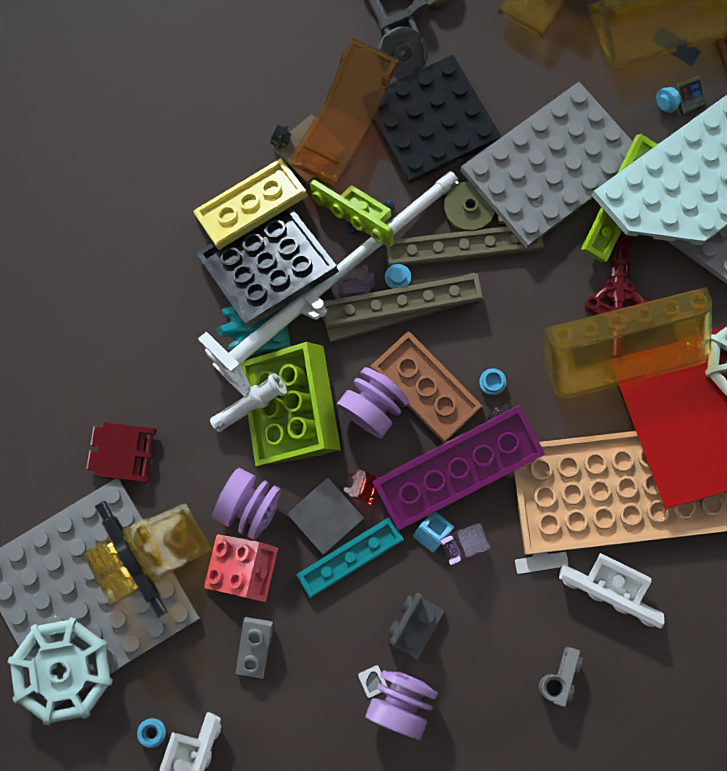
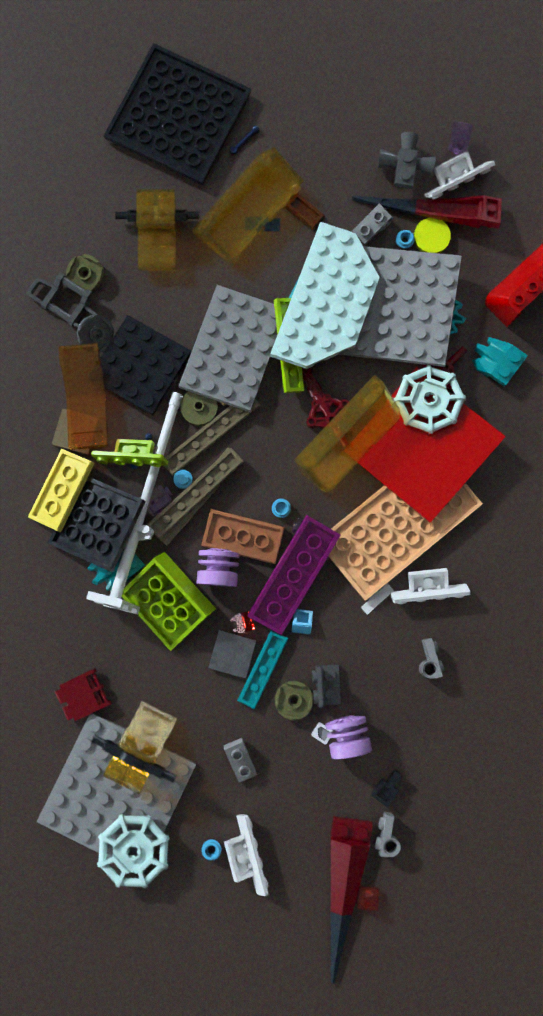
camera: 40 degrees left, 5 degrees up
(241, 567) = (201, 718): coral bracket -> none
(243, 502) = (181, 679): lavender wheel -> none
(258, 397) = (145, 610): white pin -> none
(280, 137) = (53, 436): black plate -> none
(349, 623) = (299, 709): none -> olive plate
(465, 543) = (326, 618): clear purple brick -> none
(668, 99) = (279, 263): medium azure plate -> none
(691, 95) = (290, 252): slope -> none

